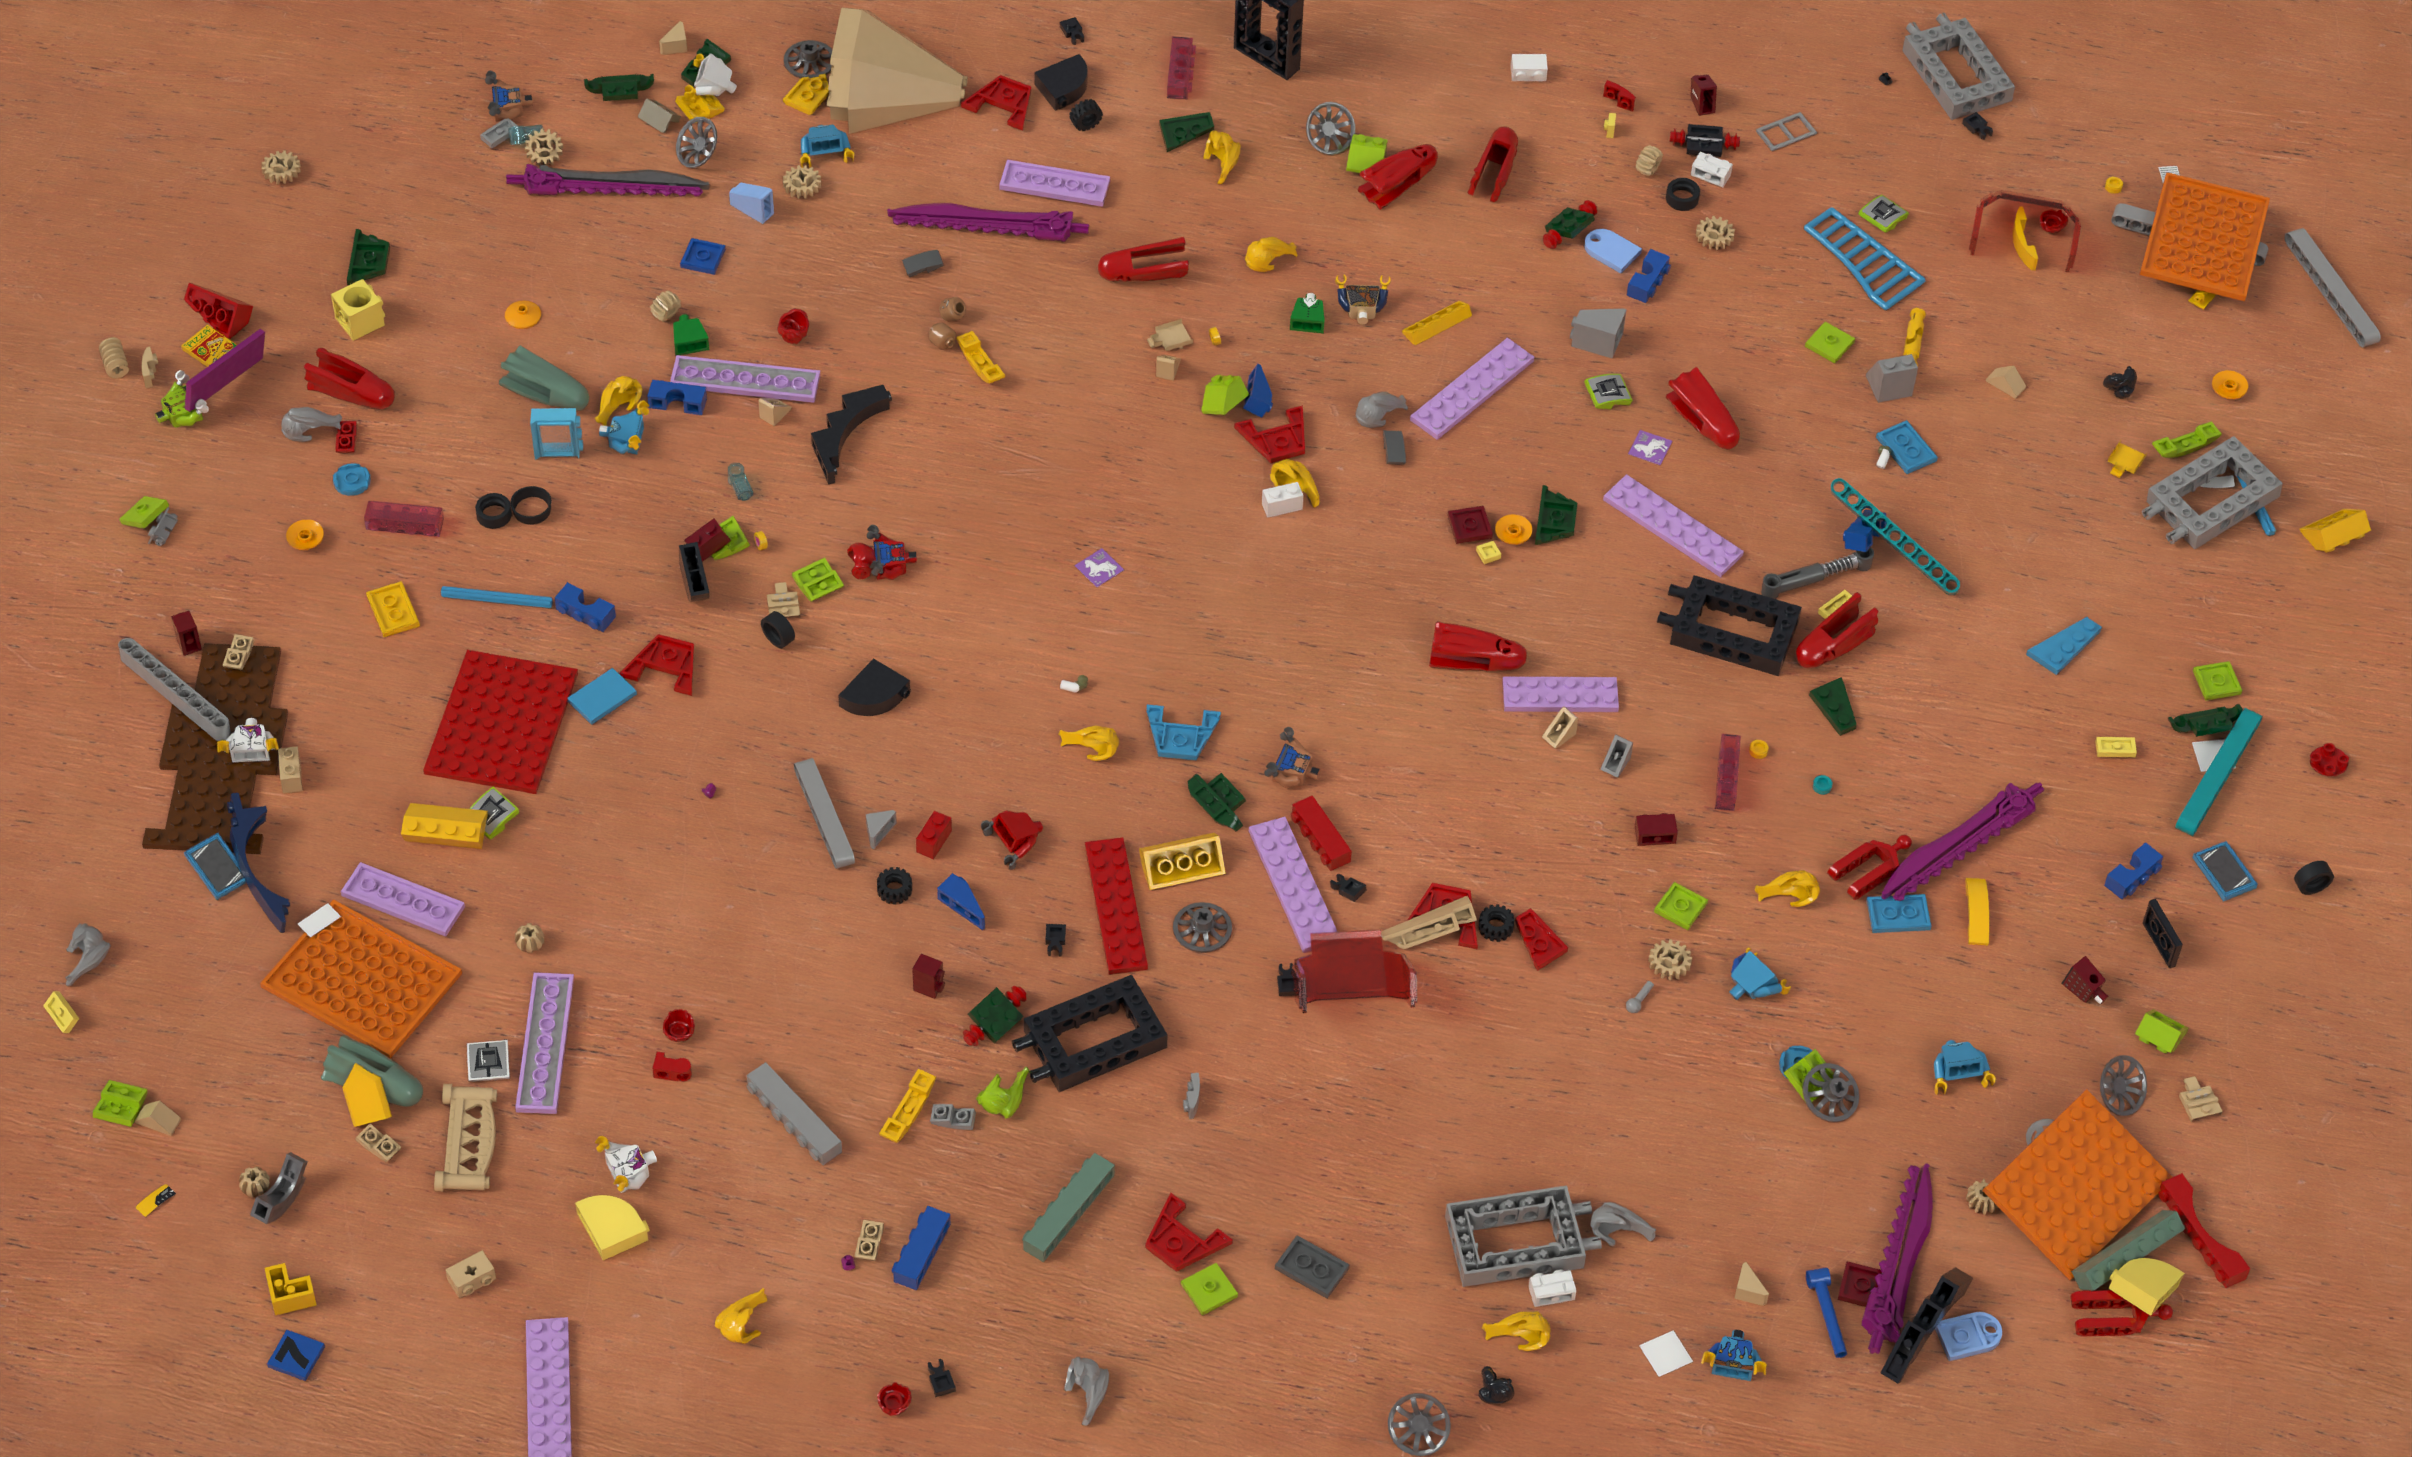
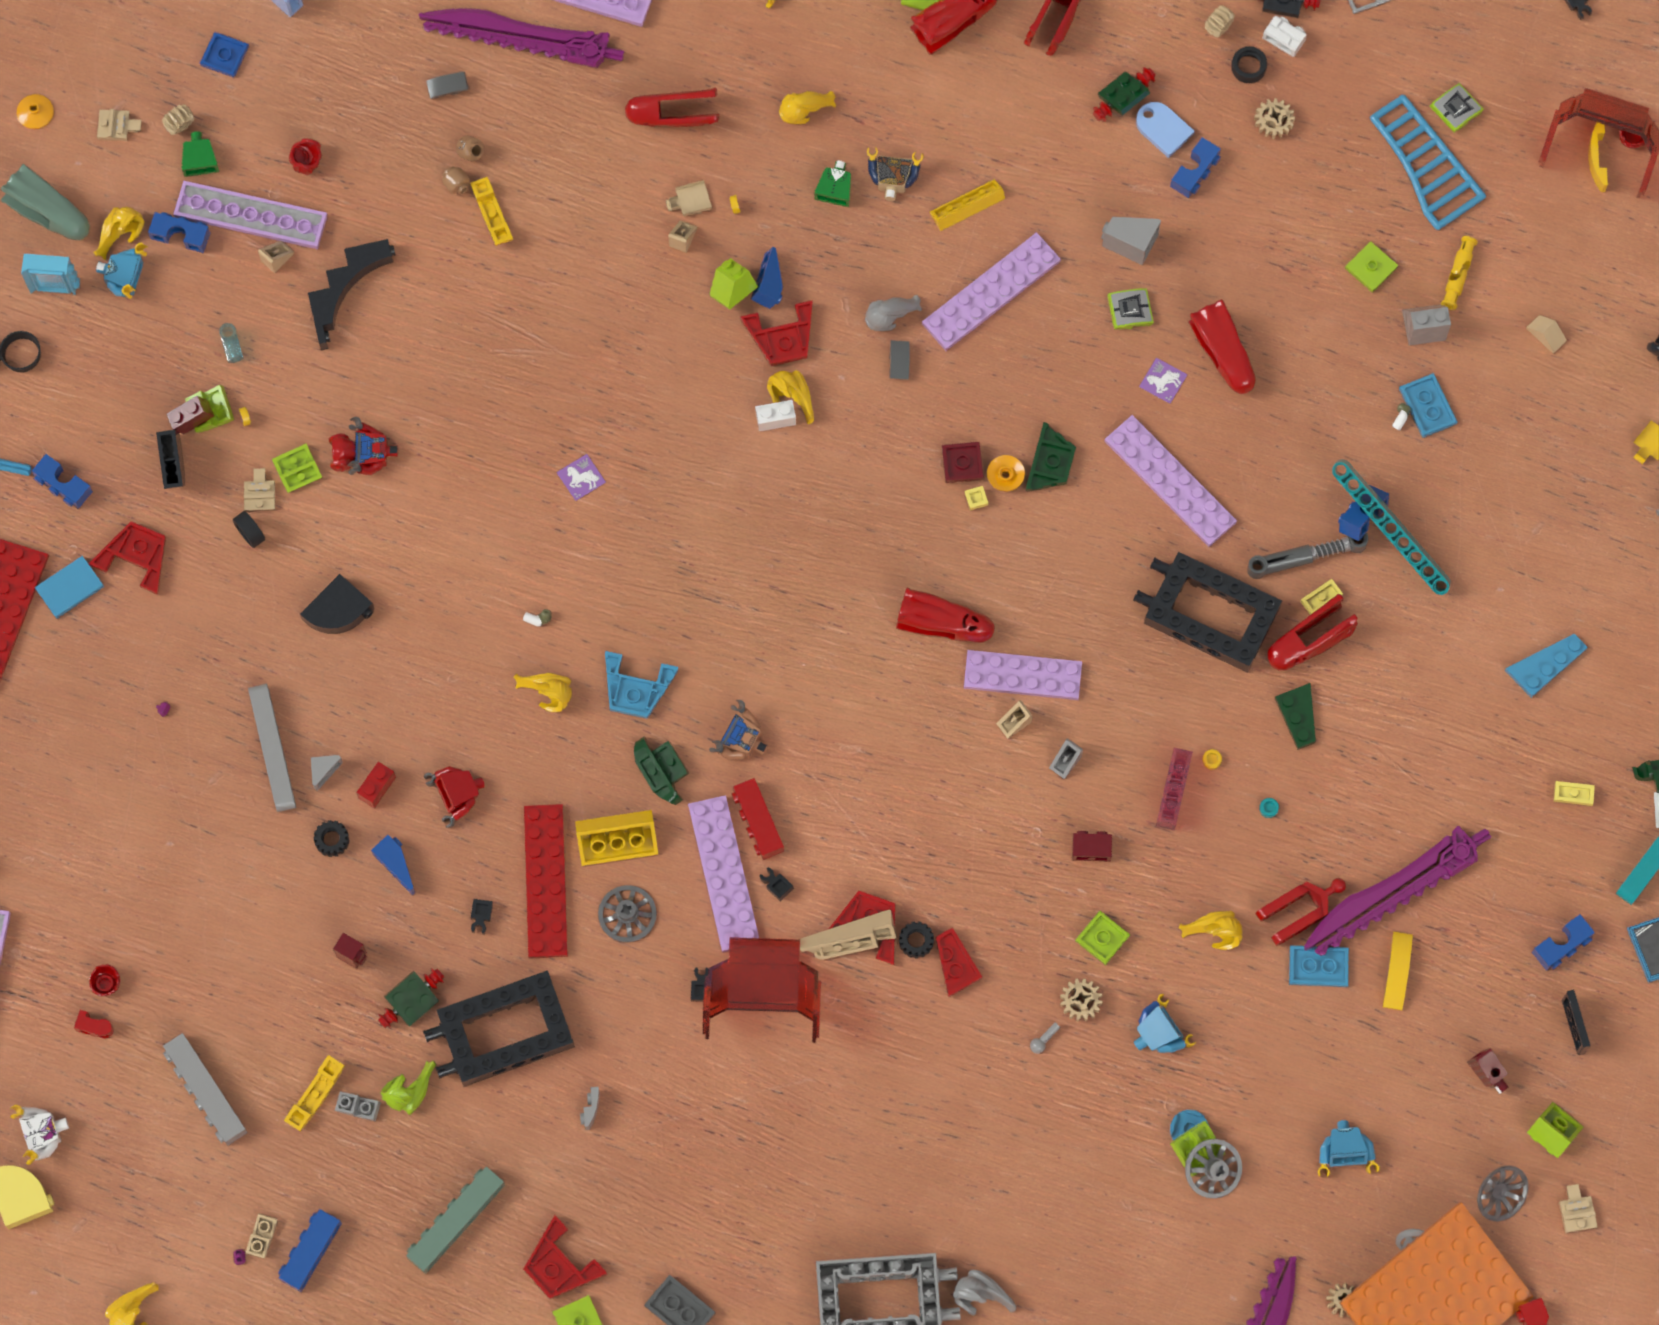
camera: 10 degrees right, 20 degrees up
(605, 318) = (114, 125): none -> tan piece

